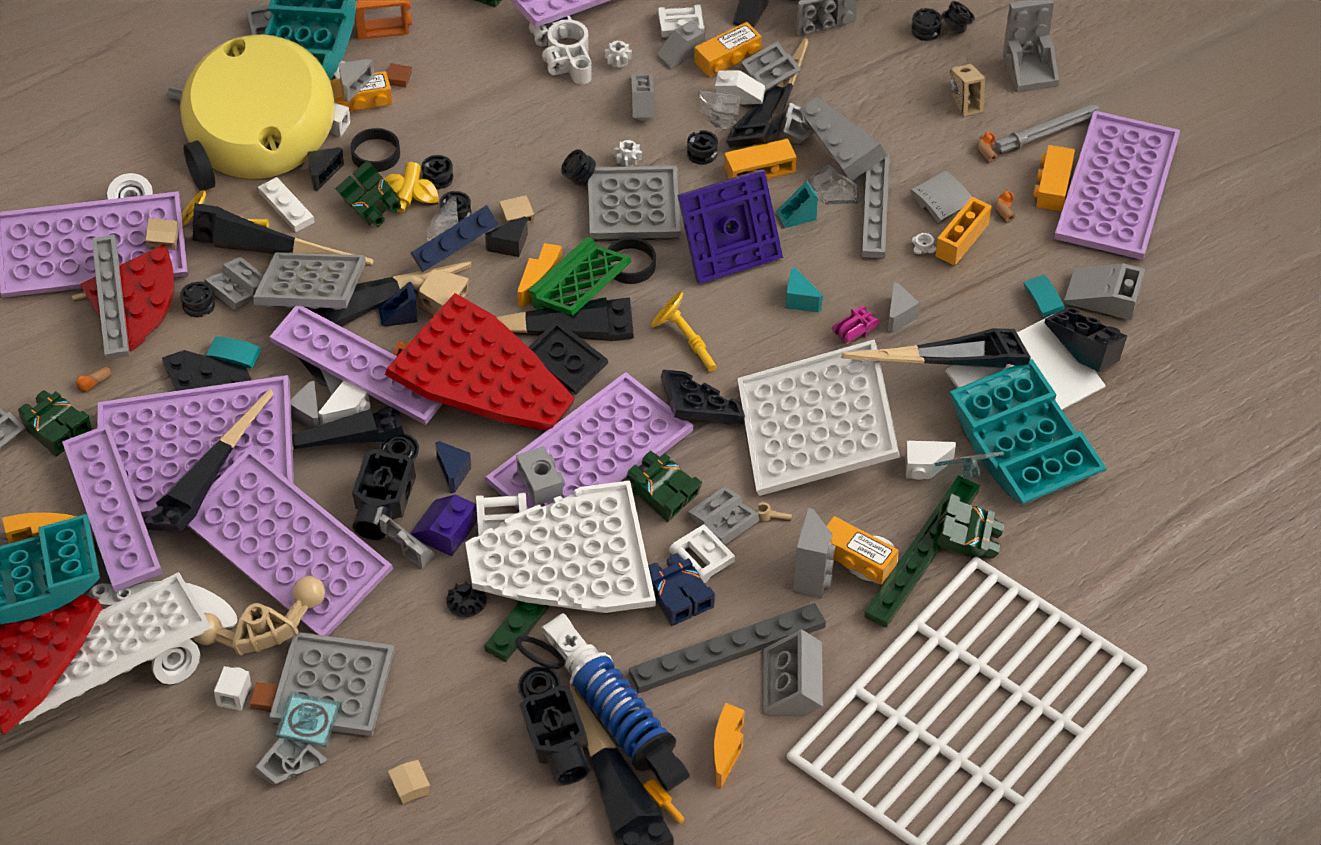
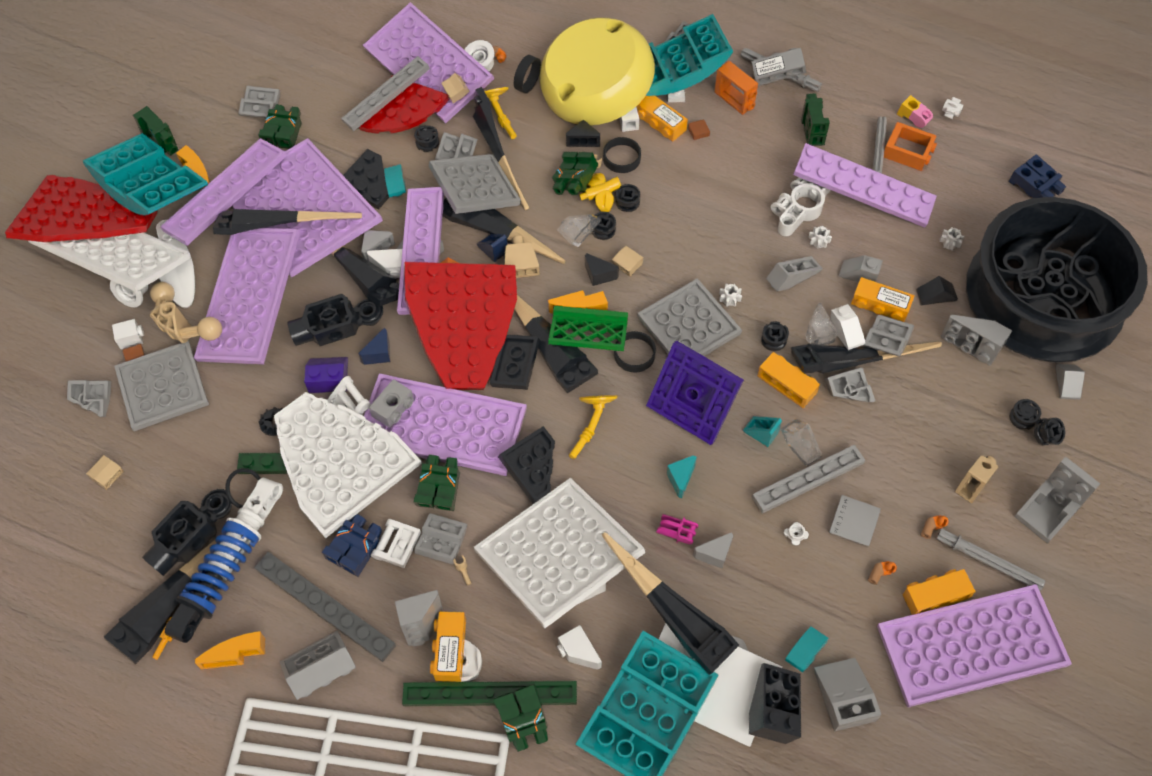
camera: 60 degrees right, 10 degrees up
(87, 382) = (325, 125): arm -> none
(286, 204) = (540, 137): white plate -> none
(308, 719) = (120, 387): clear light blue piece -> none
(355, 76) = (660, 105): light grey slope -> none
(412, 548) = (295, 359): light grey slope -> none
(454, 238) = (567, 238): dark blue plate -> none
(578, 167) = (691, 272): black wheel -> none
(674, 18) = (890, 263): white plate -> none
(845, 141) = (843, 422): light grey wedge -> none
(963, 231) = (824, 554): light orange brick -> none
(970, 466) = (588, 680): clear light blue piece -> none

